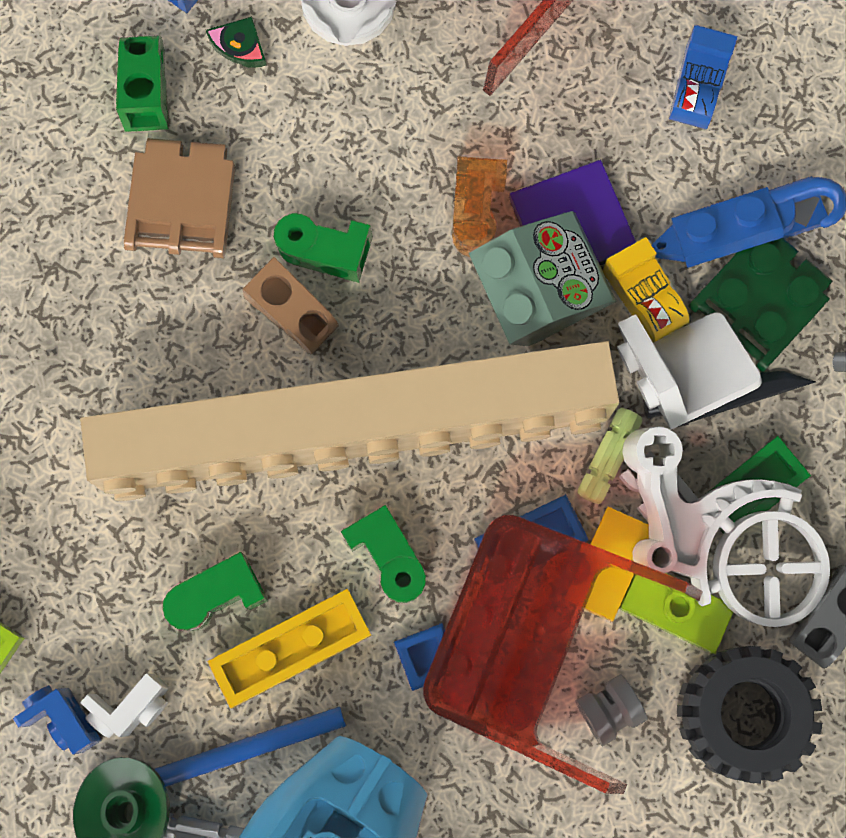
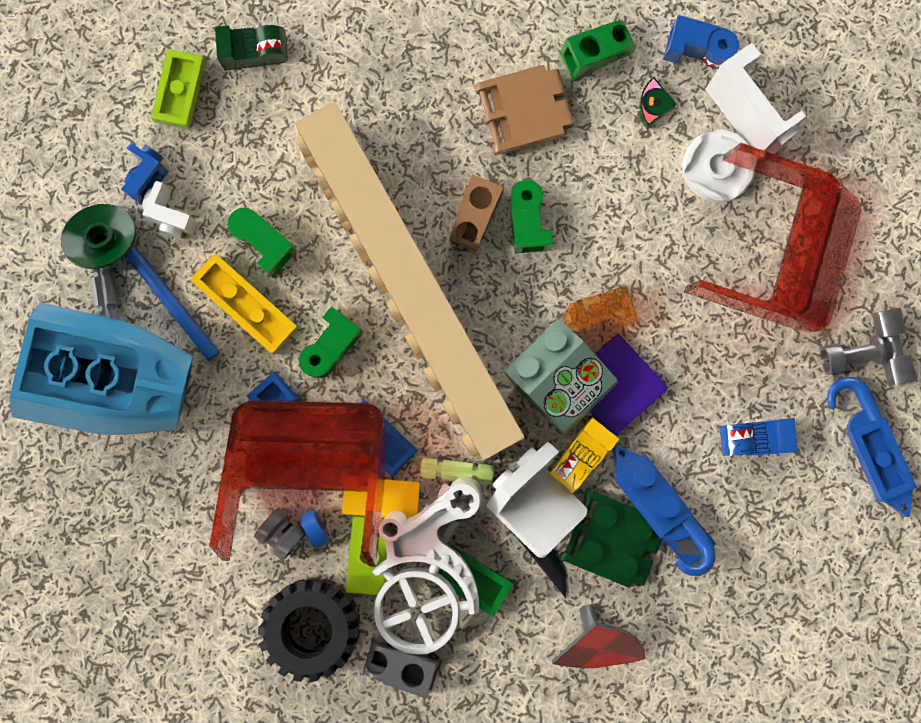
camera: 70 degrees right, 5 degrees up
(620, 662) = (315, 529): none -> blue tile

